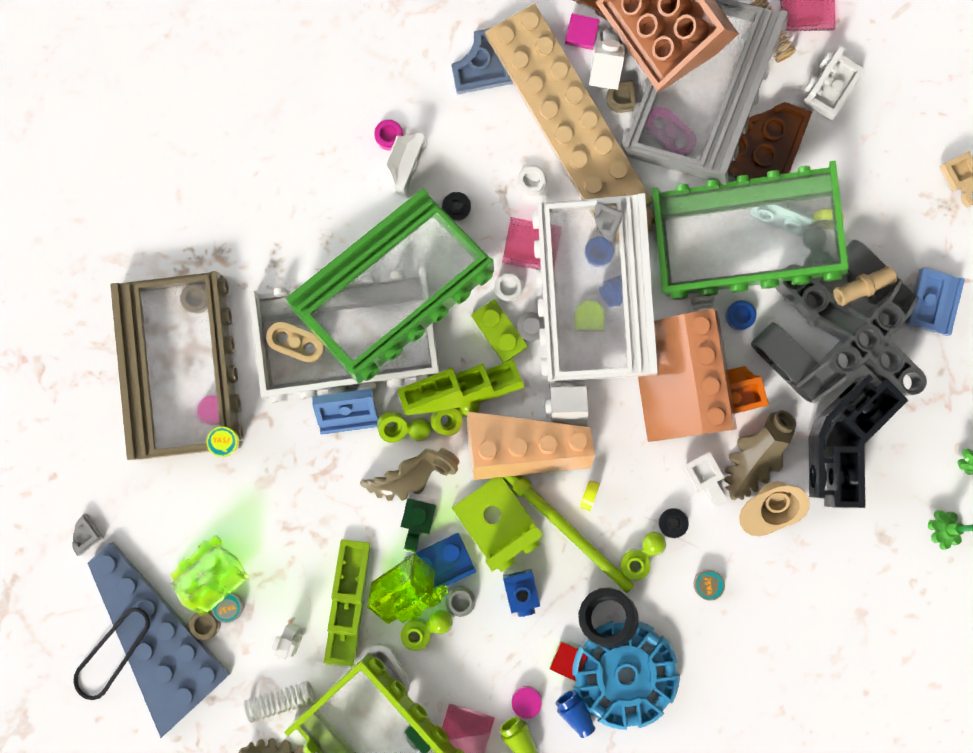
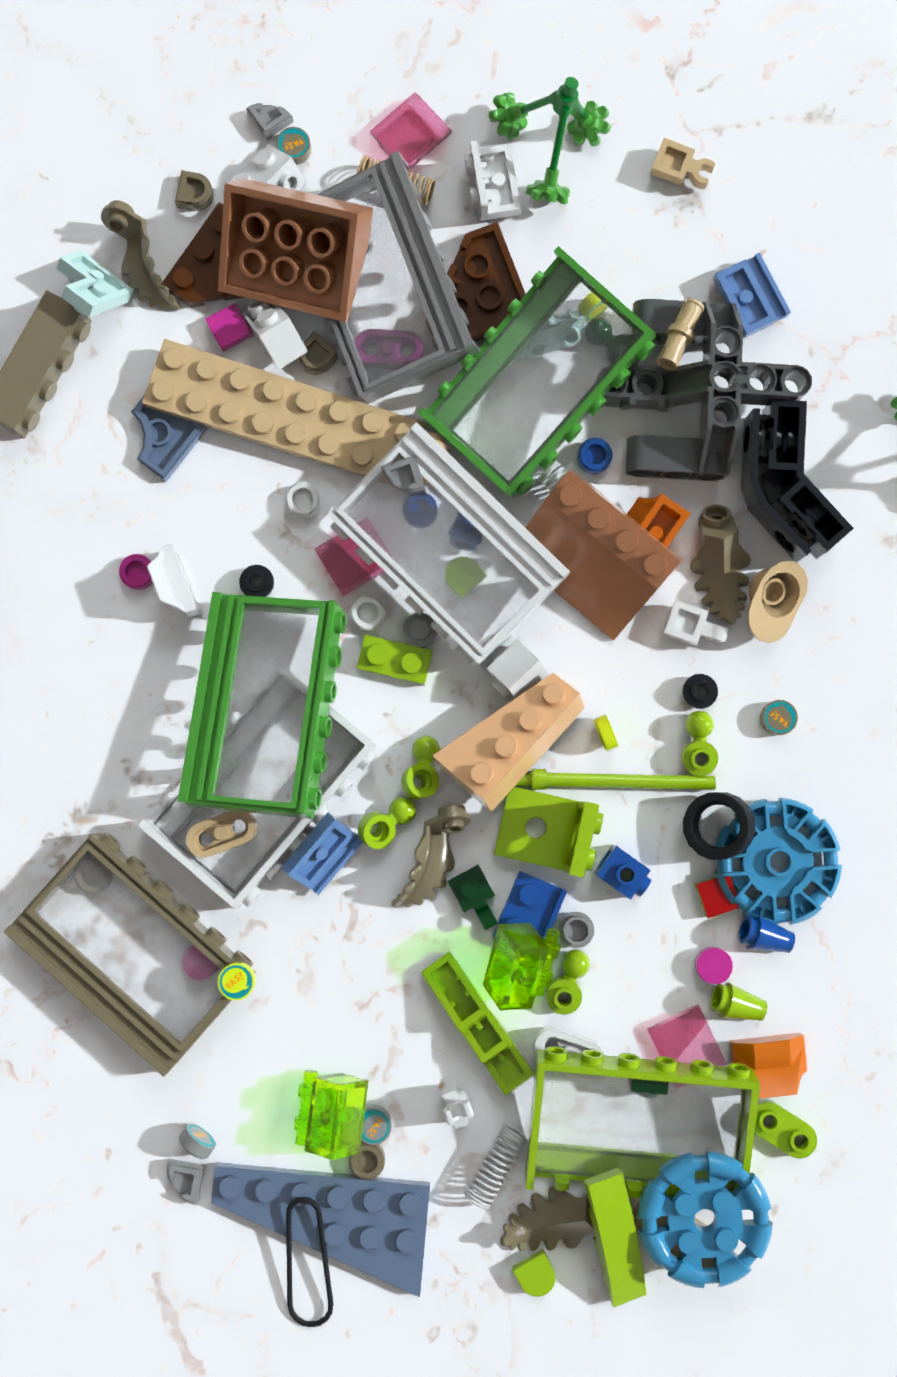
camera: 45 degrees left, 0 degrees up
(112, 518) = (197, 1141): none -> light grey tile
(457, 390) = (402, 748): lime slope -> none
(926, 100) = (586, 125): none -> bright green plant

